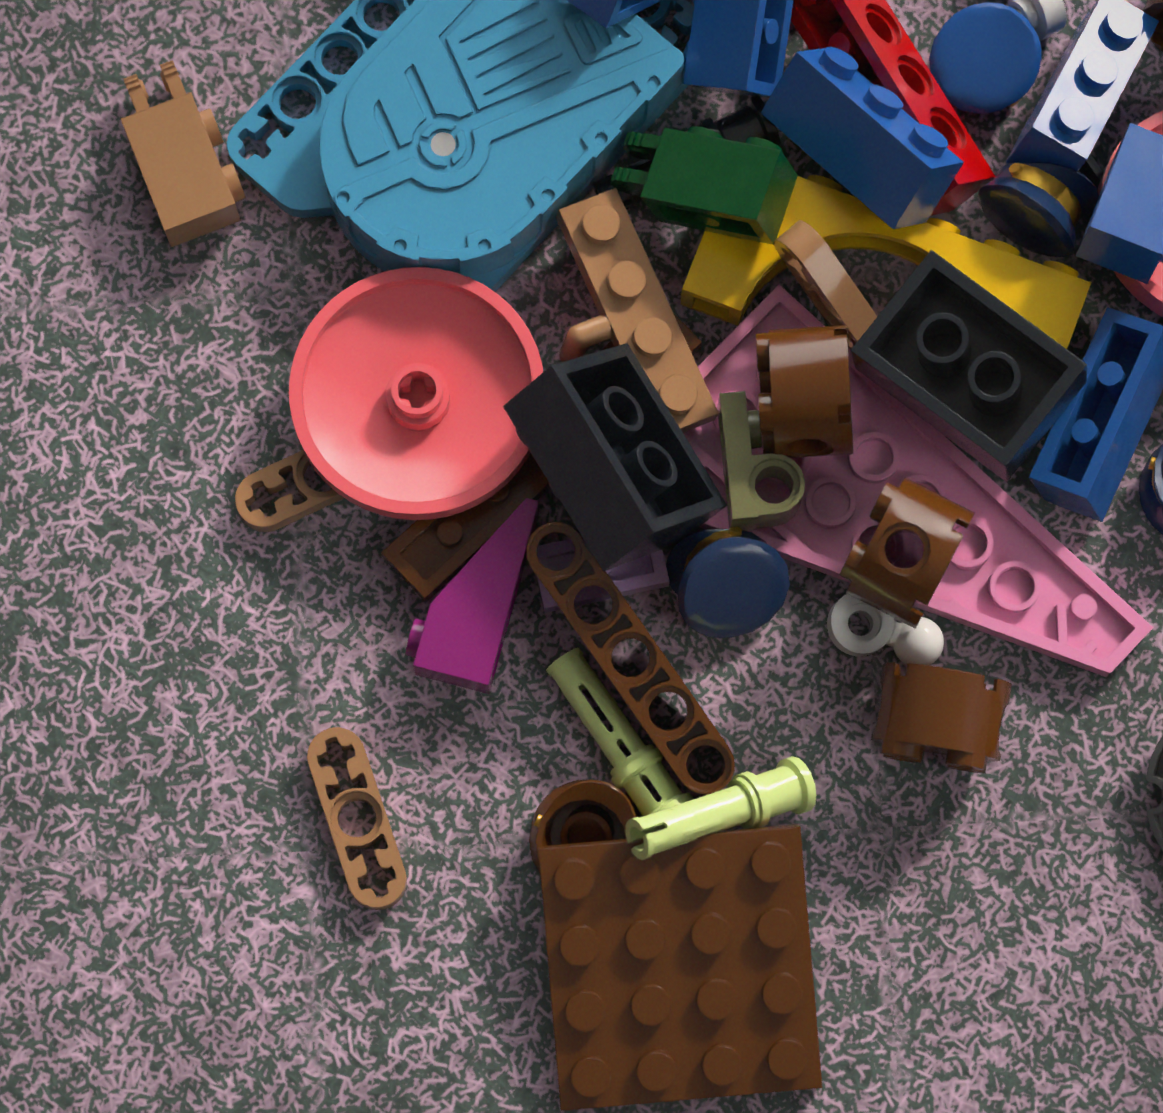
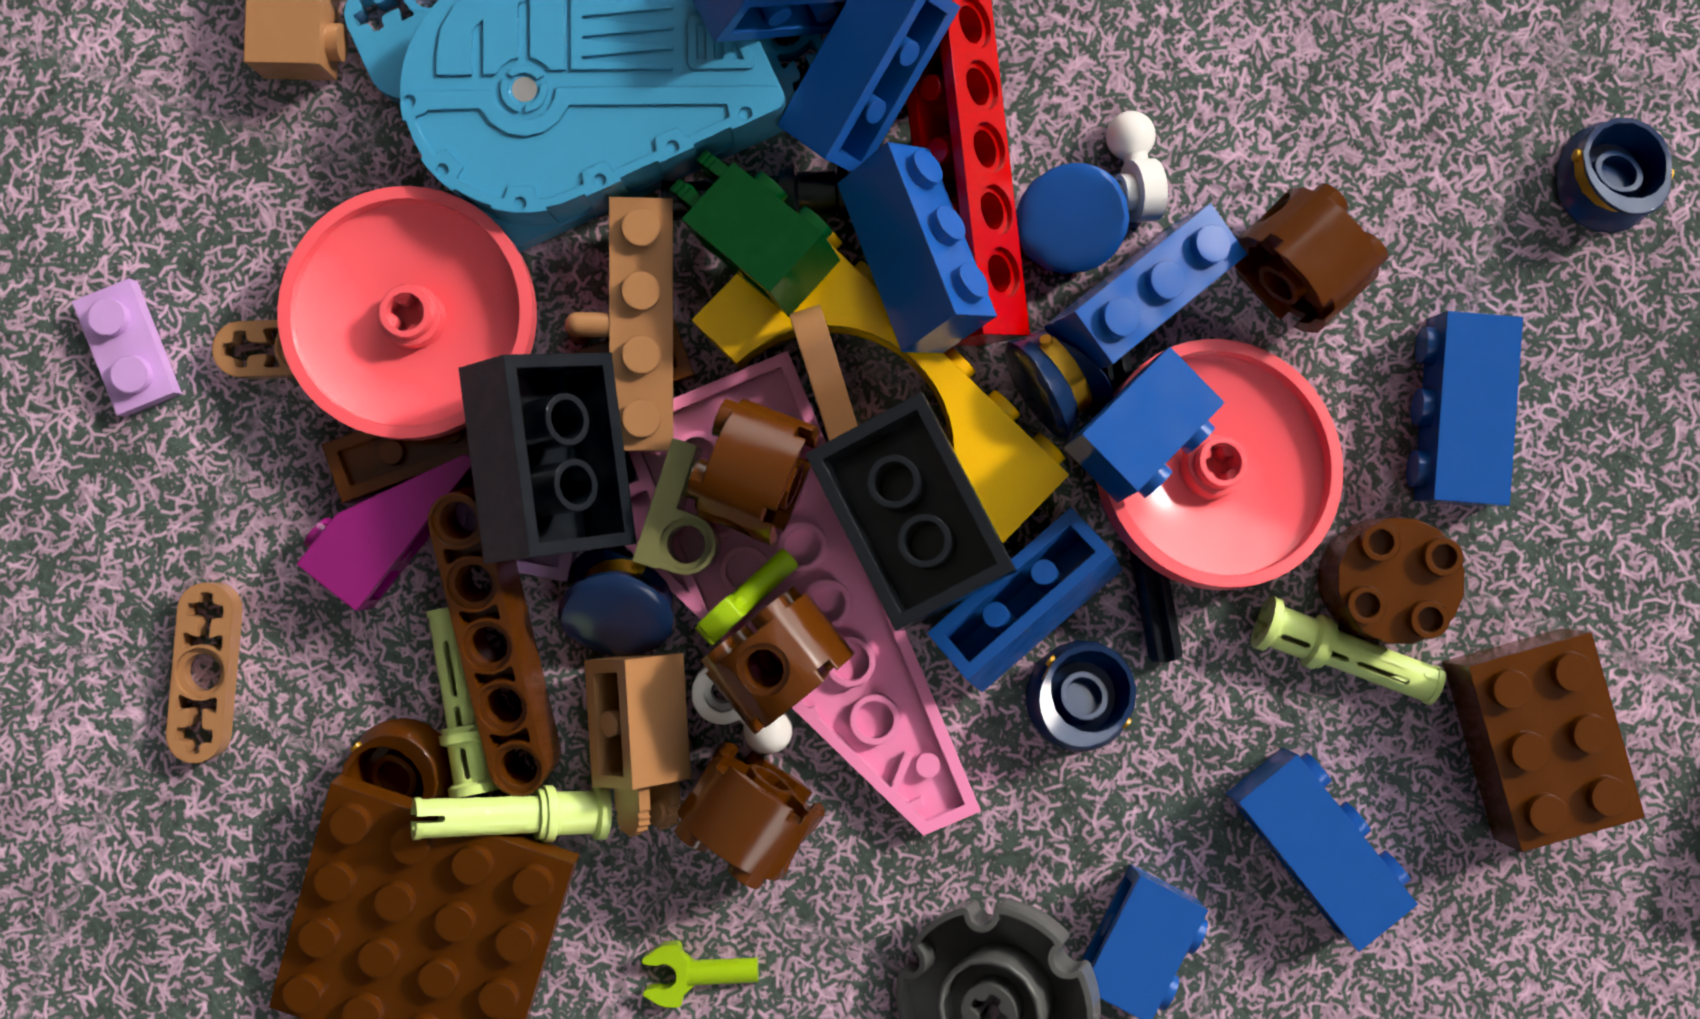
camera: 25 degrees right, 10 degrees up
(150, 546) = (126, 347): none -> lavender plate
(803, 690) = (639, 736): none -> medium nougat hinge
(846, 518) = (746, 597): none -> lime bar
(955, 902) = (694, 972): none -> lime bar

